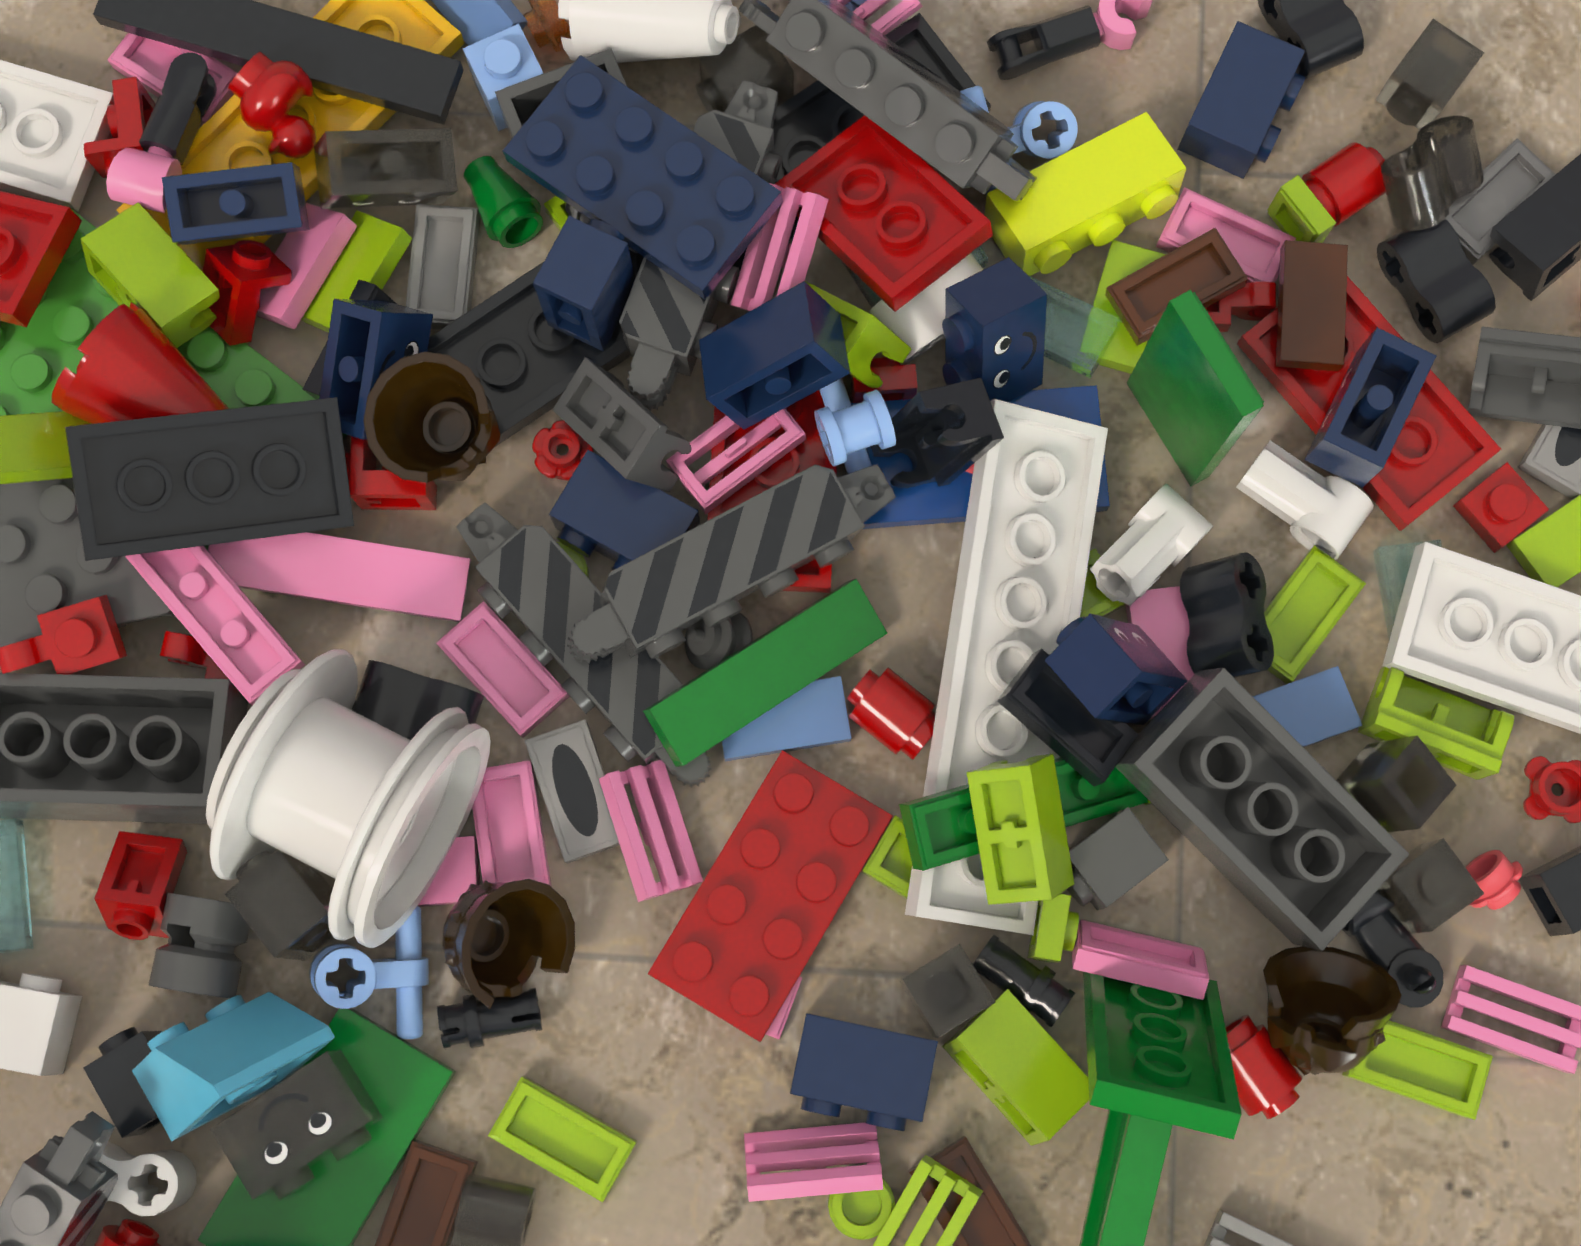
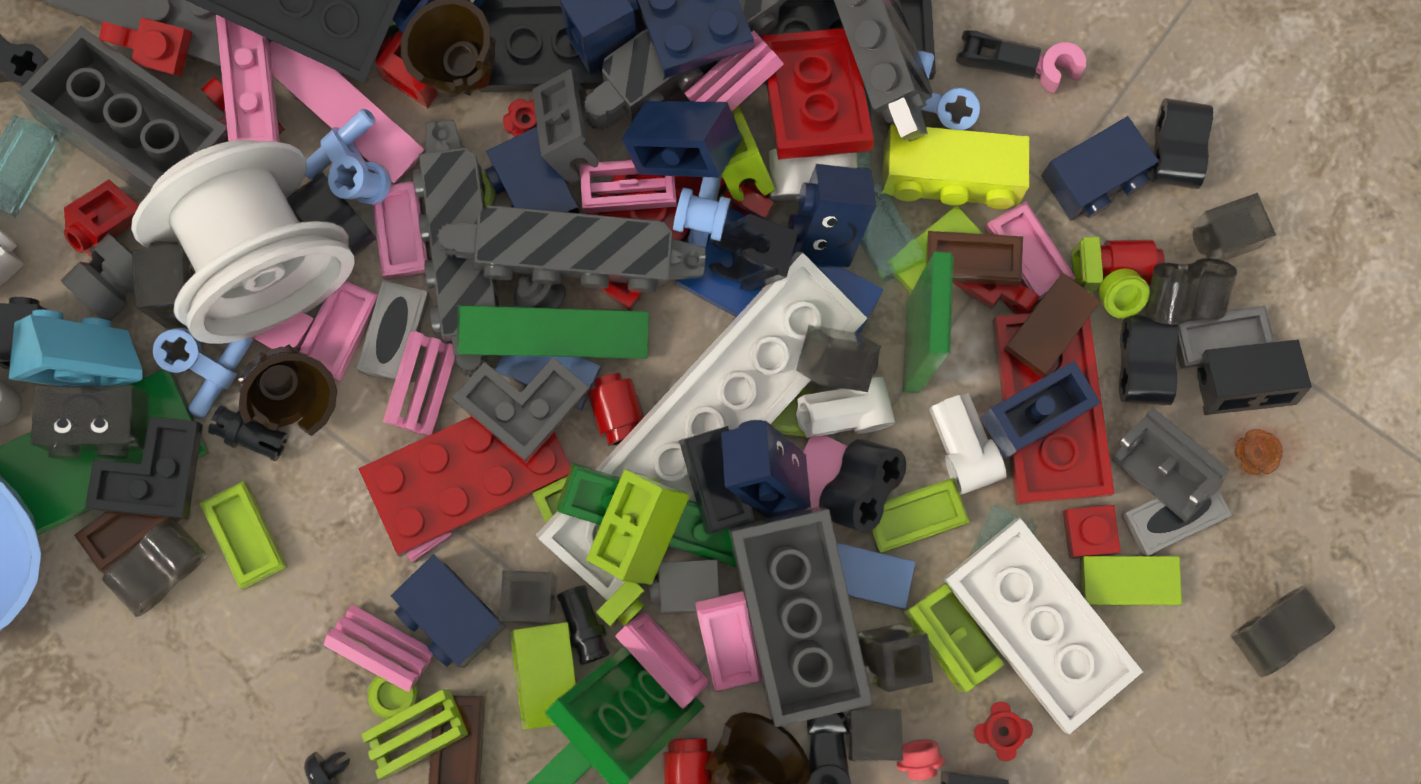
camera: 30 degrees right, 0 degrees up
(399, 632) = (349, 174): none -> light blue piece
(431, 1144) = (161, 483): none -> black plate
(800, 794) = (526, 417): none -> dark grey plate
(1112, 493) = (838, 358): none -> clear smoke brick
(1200, 890) = (728, 641): none -> bright pink tile
(1365, 220) = (1124, 293): none -> lime tile

